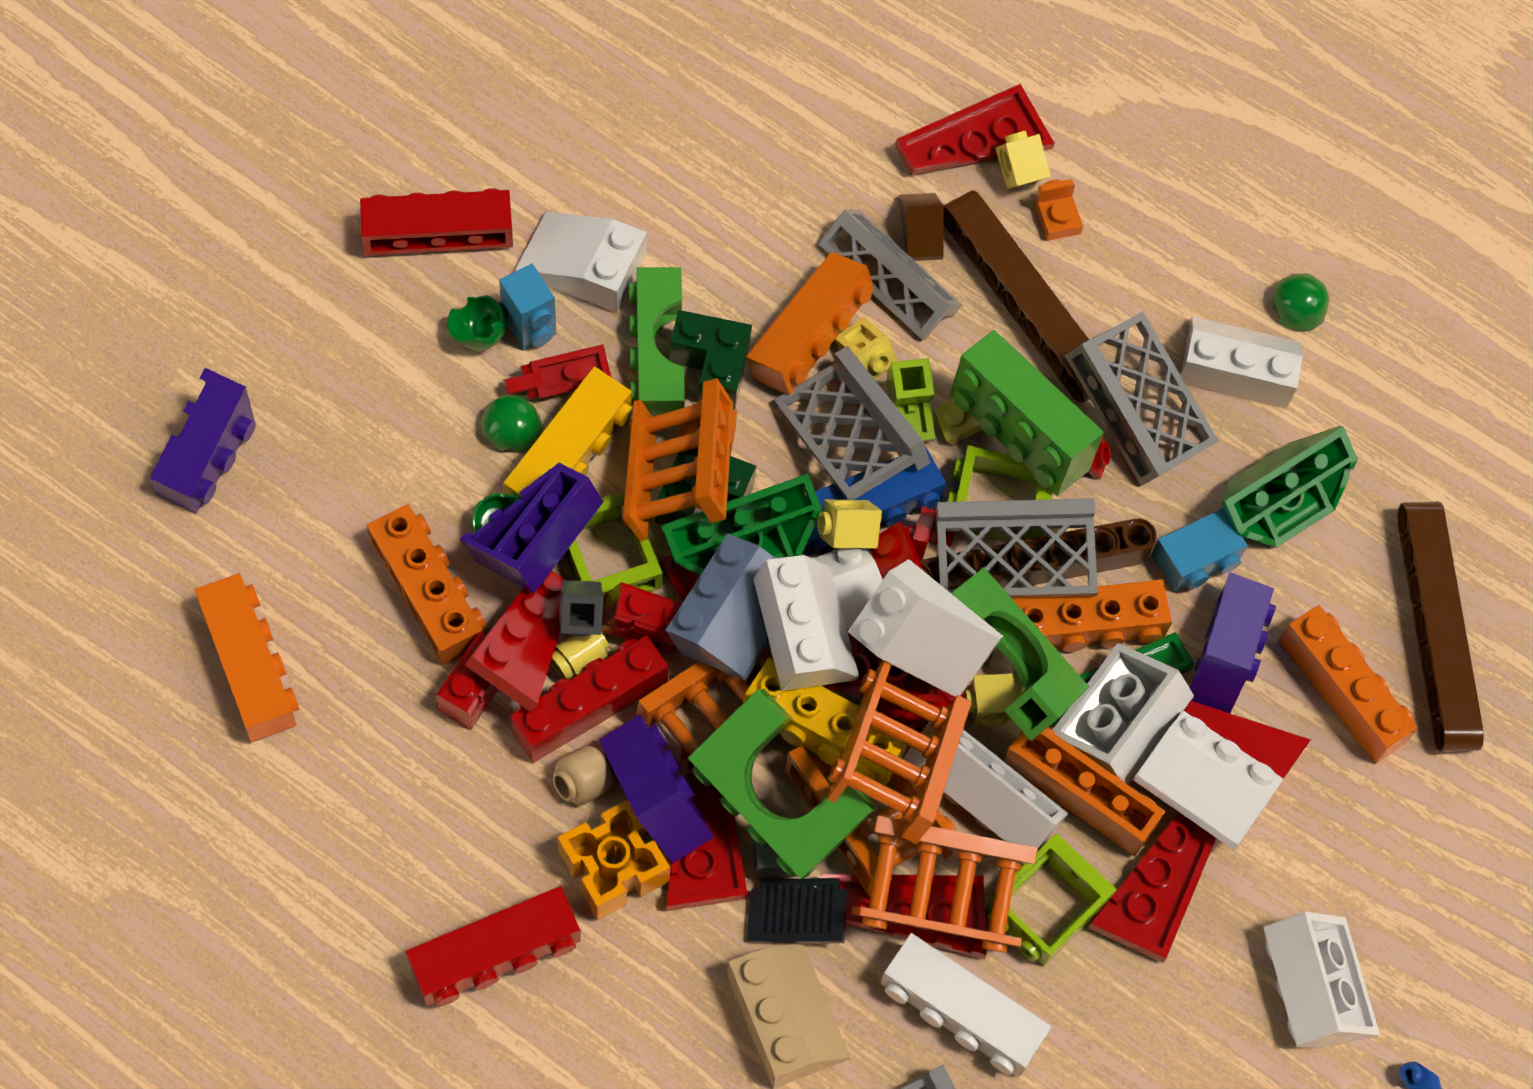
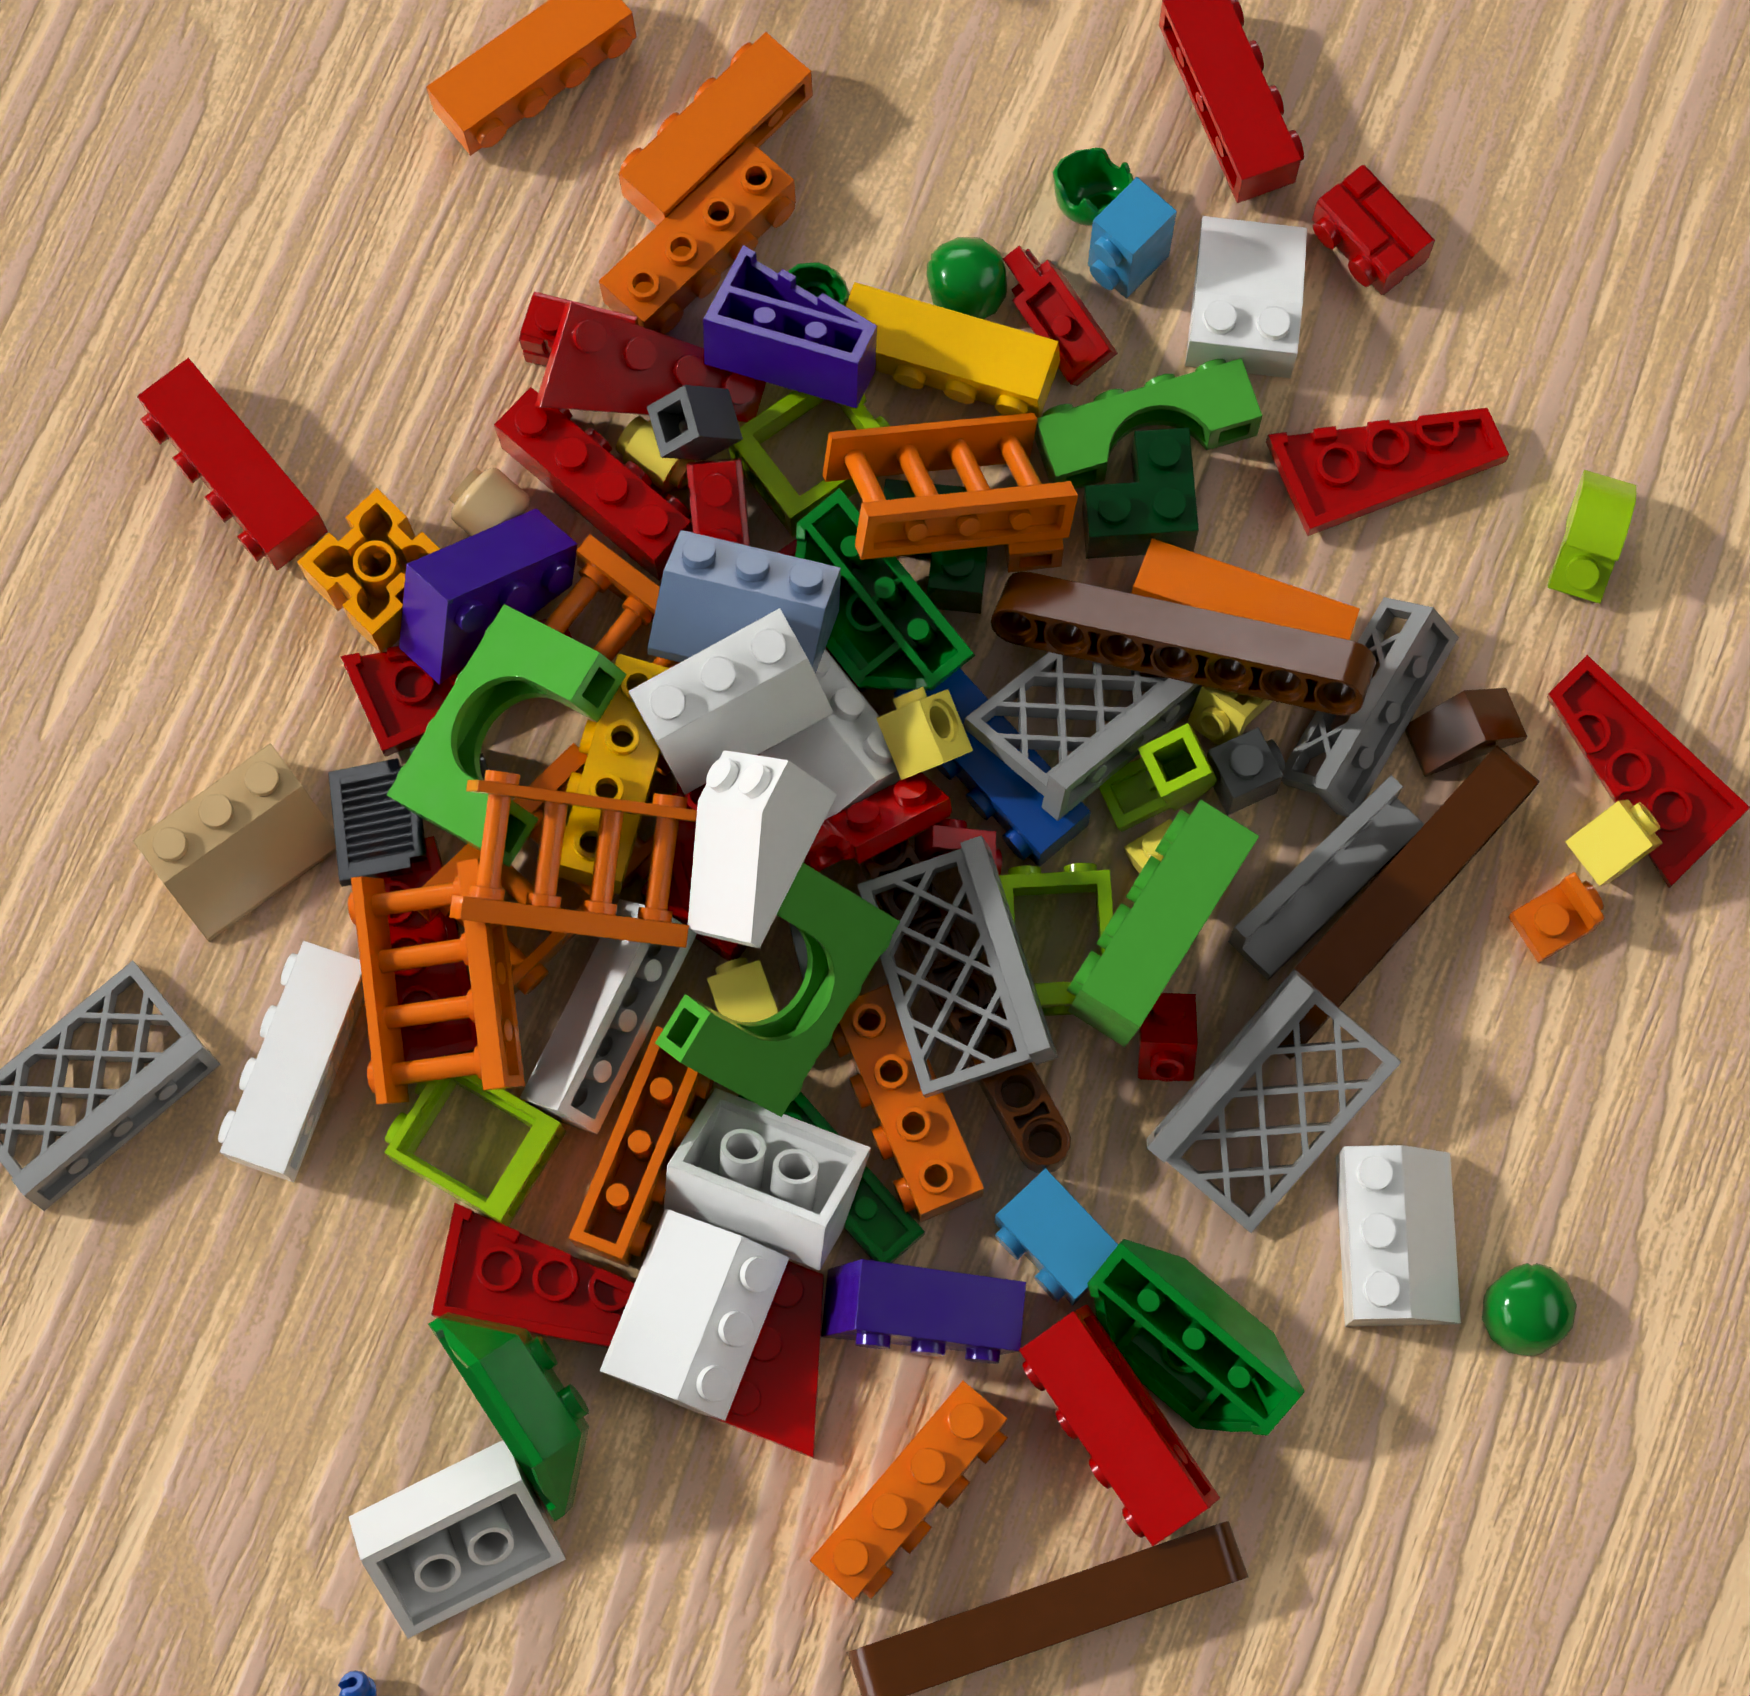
camera: 85 degrees right, 10 degrees up
(348, 548) = (741, 105): none -> orange brick
(565, 172) = (1371, 231): none -> red brick
(728, 222) = (1370, 467): none -> red wing
(817, 104) = (1593, 536): none -> lime brick
(829, 356) = (1184, 643): none -> reddish brown beam
(917, 343) = (1246, 770): none -> dark grey brick
(989, 312) = (1326, 880): none -> light grey fence
(1241, 907) = (523, 1401): none -> green wedge
(1330, 545) = (1118, 1425): none -> red brick

